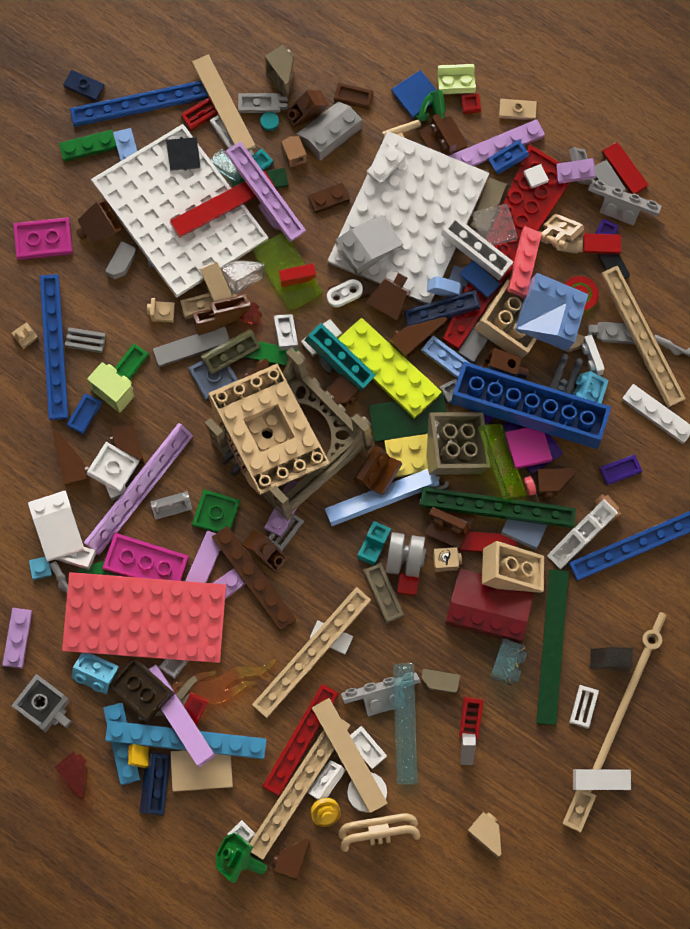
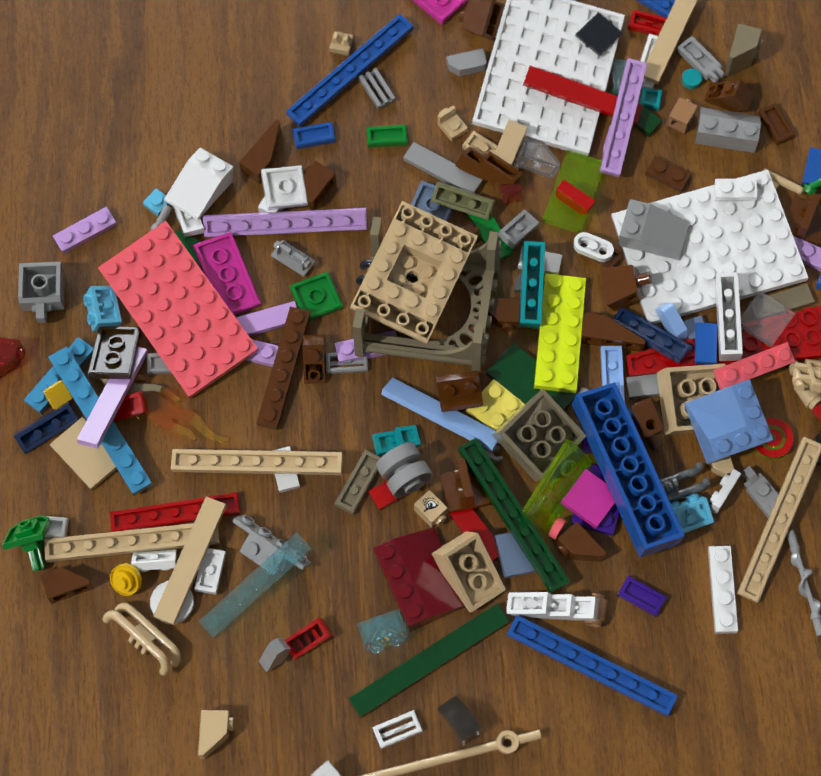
camera: 55 degrees right, 5 degrees down
(111, 387) = (351, 134): yellowish green brick -> none
(440, 681) = (319, 588): dark tan piece -> none

